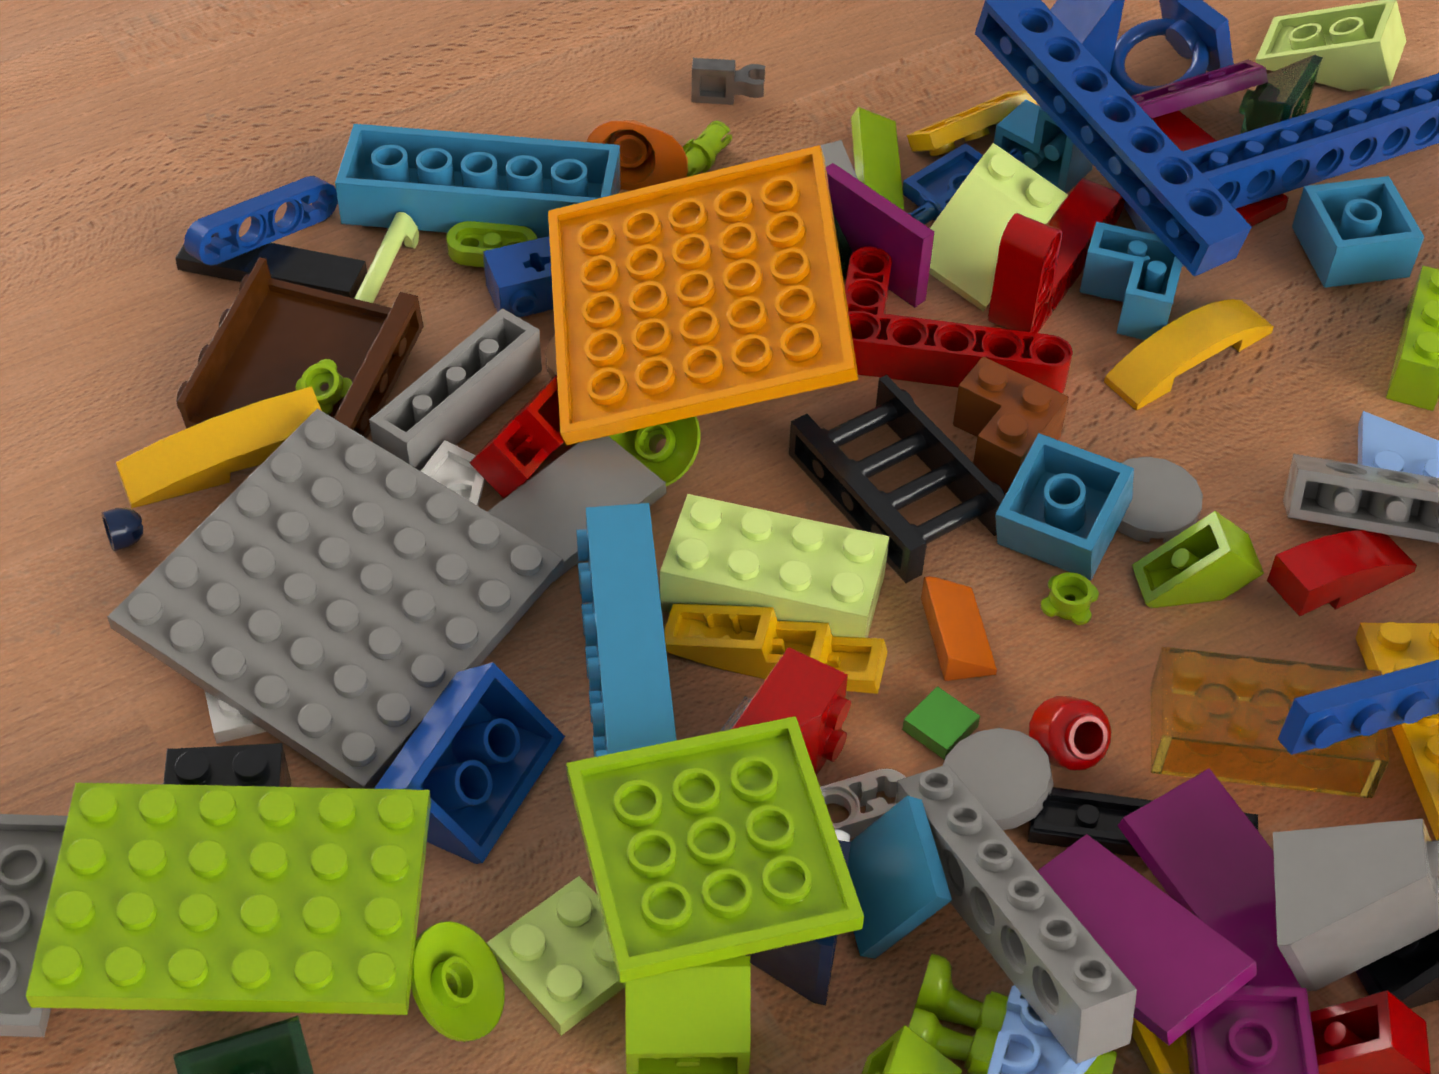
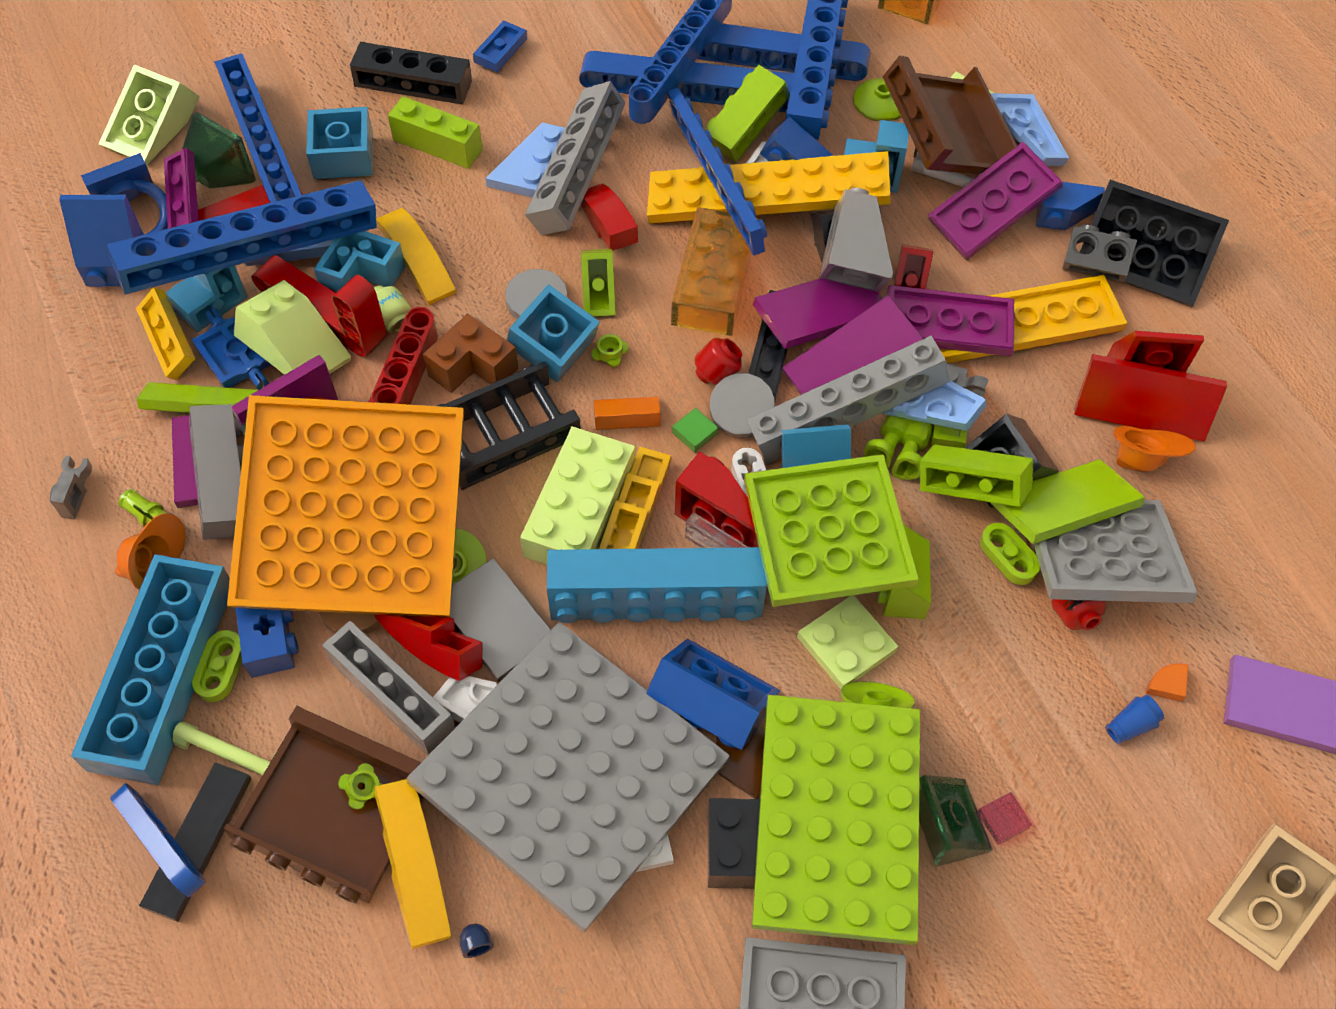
camera: 85 degrees left, 10 degrees up
(1074, 319) = (393, 307): none -> yellowish green head

